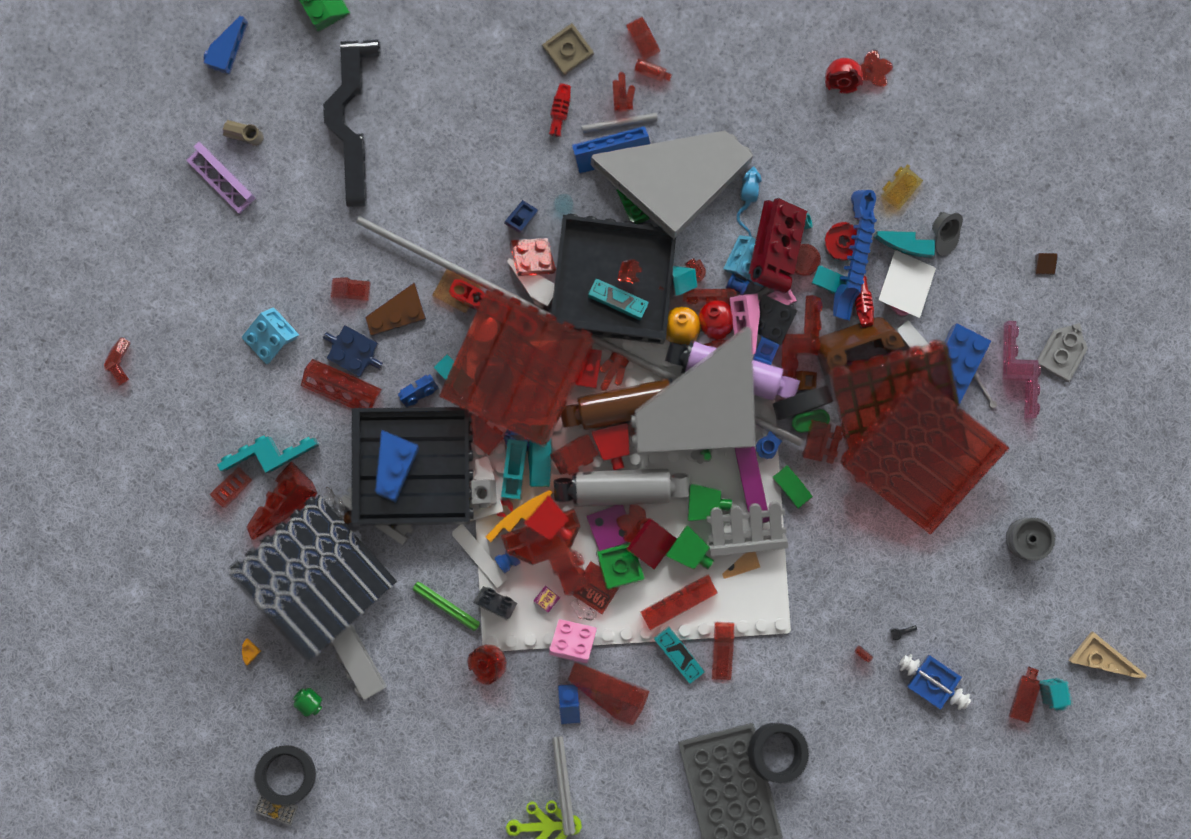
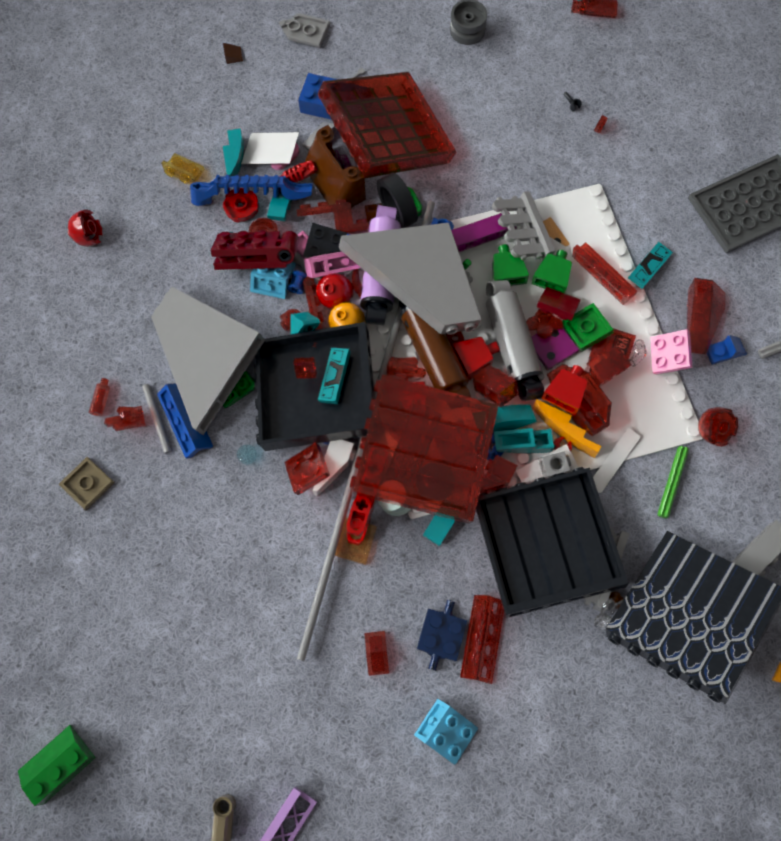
camera: 105 degrees left, 15 degrees down
(230, 497) = (635, 752): clear red slope -> none
(267, 453) = (575, 702): teal bracket -> none
(290, 494) = (615, 669): clear red wedge -> none
(334, 117) = (193, 712): black beam -> none
(394, 465) = (556, 551): blue wedge -> none
(397, 312) = (391, 597): reddish brown wing -> none
(410, 396) = (462, 550): blue hinge -> none
(495, 603) = (658, 430): black hinge -> none
(506, 561) = (614, 431): blue wheel -> none
(521, 217) = (268, 489): dark blue slope -> none
(546, 599) = (637, 388): tile -> none
(560, 108) = (149, 476): red hinge -> none
(643, 38) = (66, 412): clear red slope -> none
(722, 650) = (632, 230): clear red slope -> none
(749, 192) = (206, 289): dark azure animal -> none
(792, 486) = (472, 203): green slope -> none
(800, 759) = (714, 154): black tyre -> none
(817, 439) = (426, 187): clear red plate -> none
(877, 67) = (73, 205): clear red plate -> none
(923, 453) = (418, 97): clear red panel -> none
(934, 682) = (606, 70): blue plate -> none
(947, 232) = (215, 127): dark grey piece -> none
(1021, 370) = (328, 52): clear pink bracket -> none

